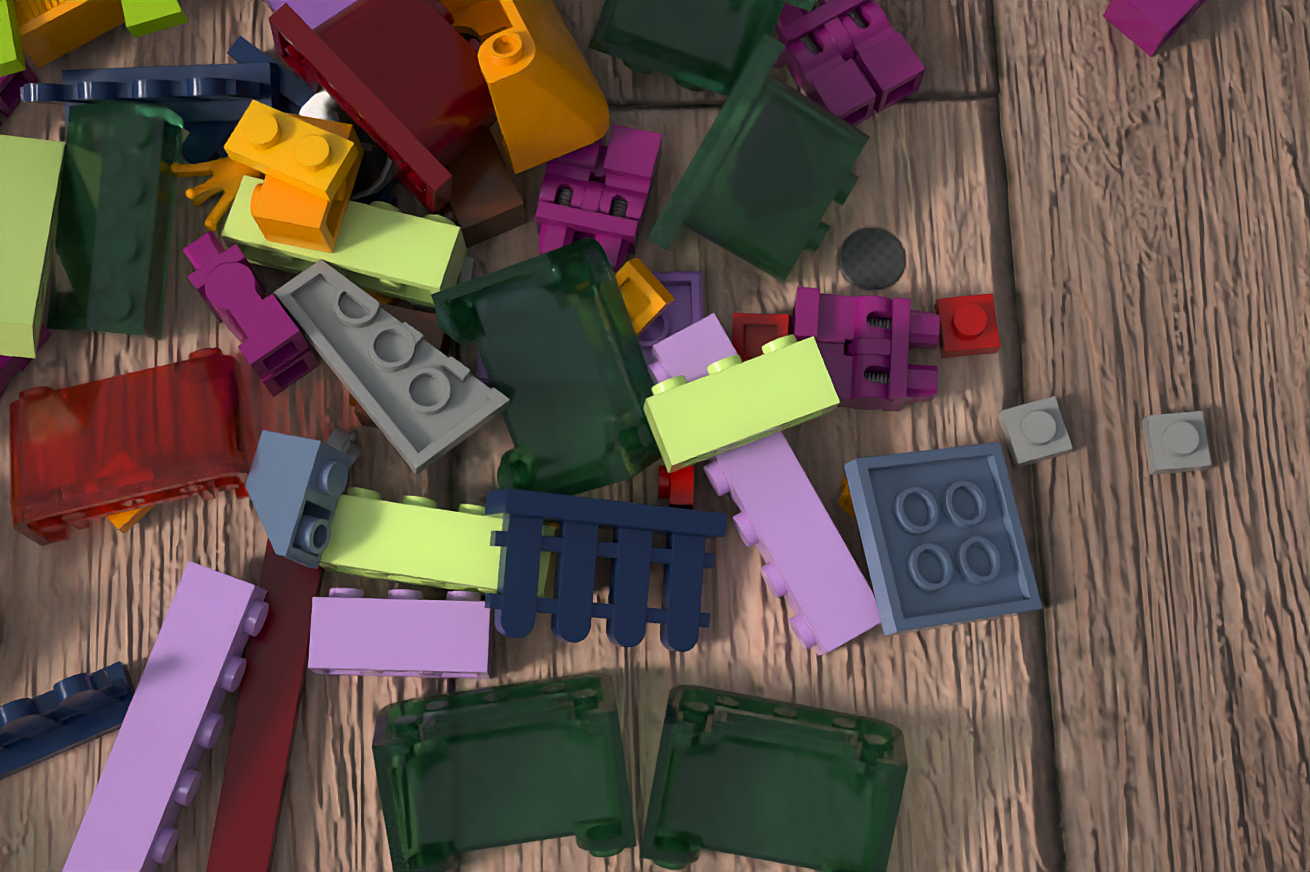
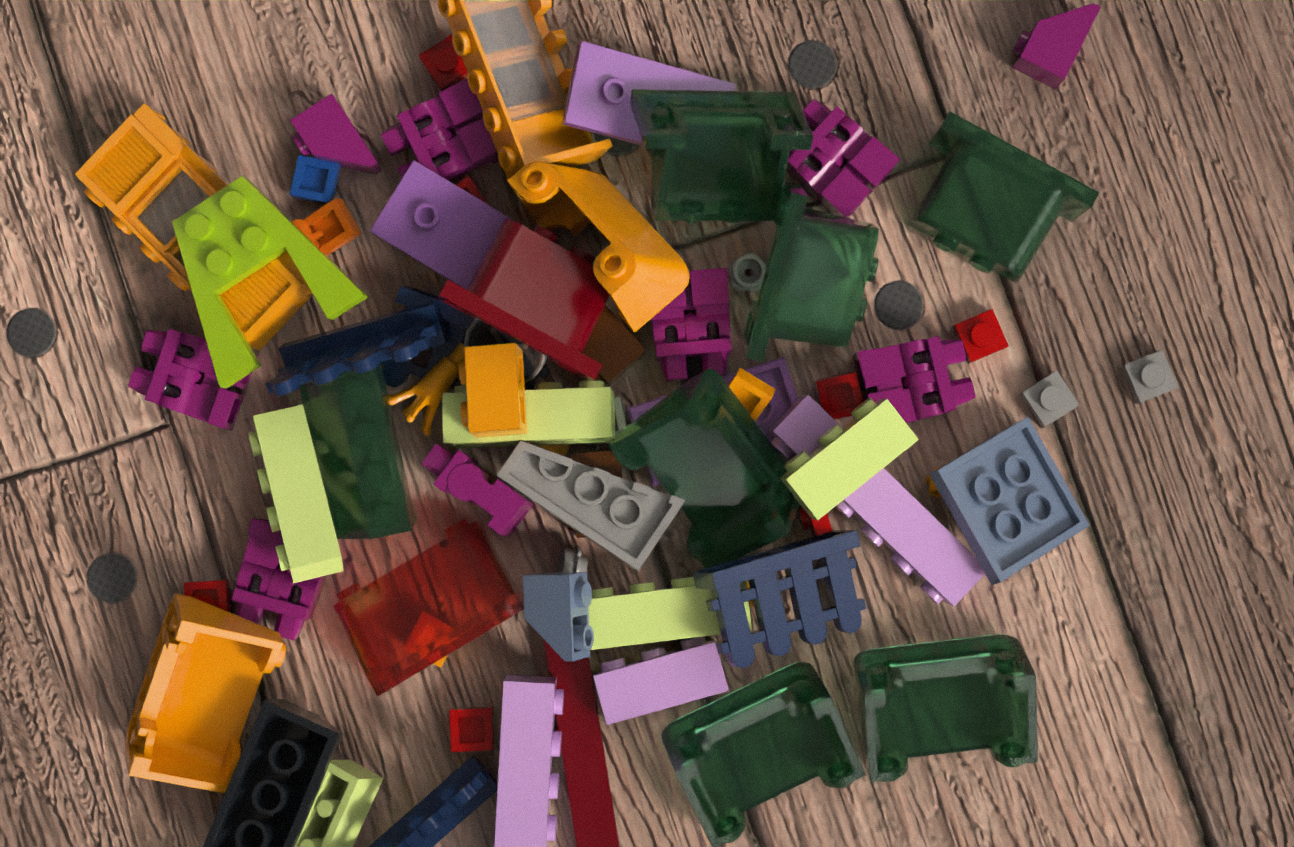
camera: 15 degrees left, 10 degrees up
(130, 624) = (471, 729): none -> red plate
(291, 150) = (480, 377): yellow plate -> none
(678, 150) = (738, 267): none -> light grey plate
(1035, 153) = (994, 199): none -> clear green windscreen

